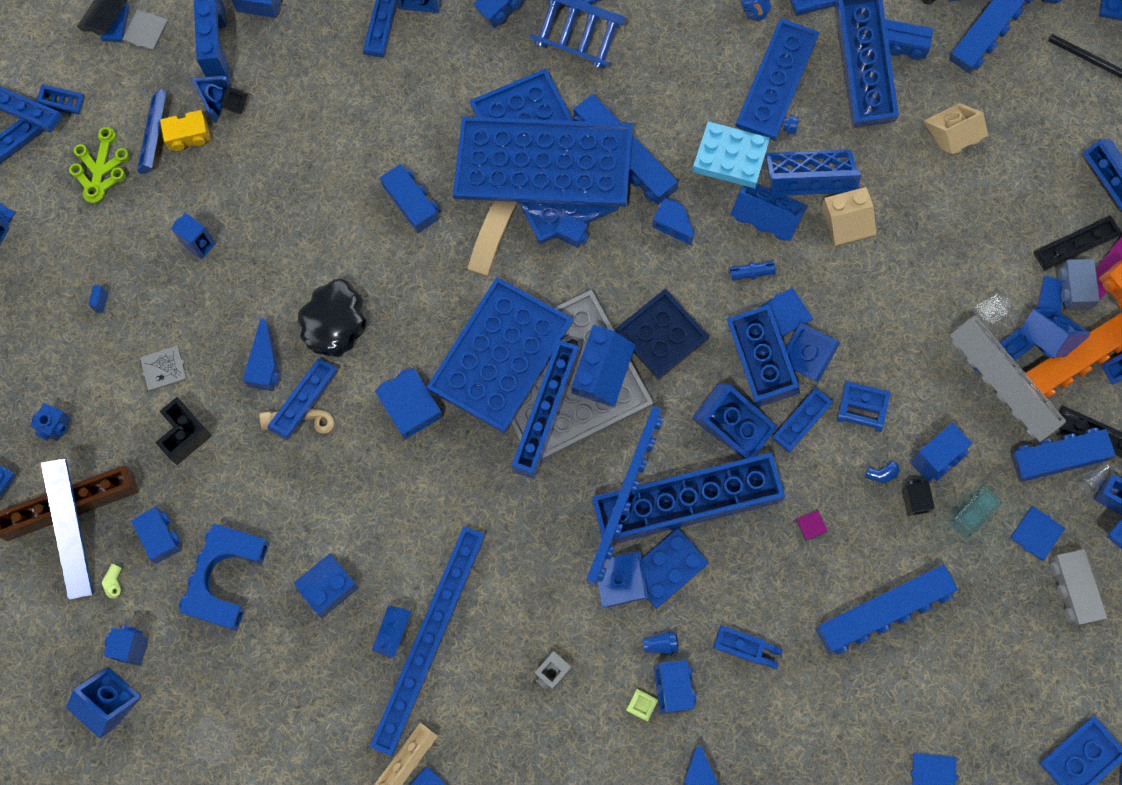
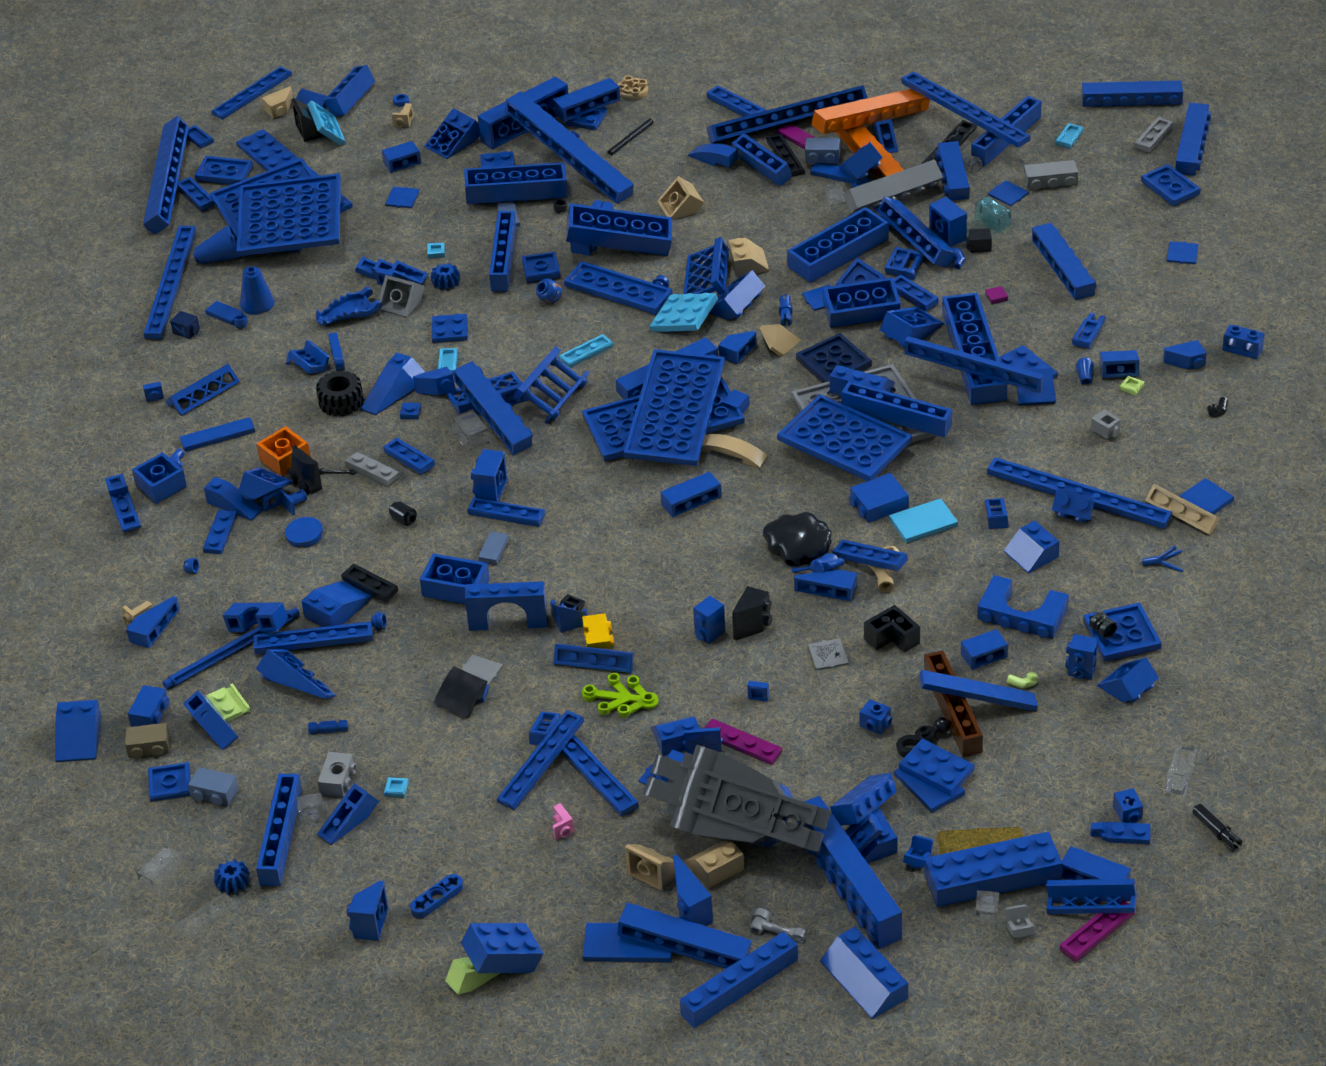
camera: 85 degrees left, 30 degrees down
(17, 249) = (704, 737): none -> blue piece
(26, 476) = (926, 732): none -> black piece
(33, 291) = (746, 742): none -> magenta plate
(41, 223) = (671, 734): none -> blue slope
(176, 670) = (1105, 626): none -> pearl dark grey wheel
(186, 695) = (1132, 635): none -> blue plate
(205, 278) = (751, 613): none -> black slope
(295, 351) = (824, 563): none -> blue piece
(311, 741) = (1158, 559): none -> blue plant
(324, 14) = (493, 548): none -> sand blue tile
(378, 457) = (923, 520): none -> medium azure tile
(385, 550) = (998, 518): none -> blue slope
(661, 61) = (586, 351): none -> medium azure tile
(692, 266) = (779, 338): none -> tan slope
(882, 320) = (837, 244): none -> blue brick
(921, 414) = (916, 232): none -> blue brick
(1050, 212) = (762, 159): none -> blue brick
(1059, 156) = (715, 154): none -> blue slope

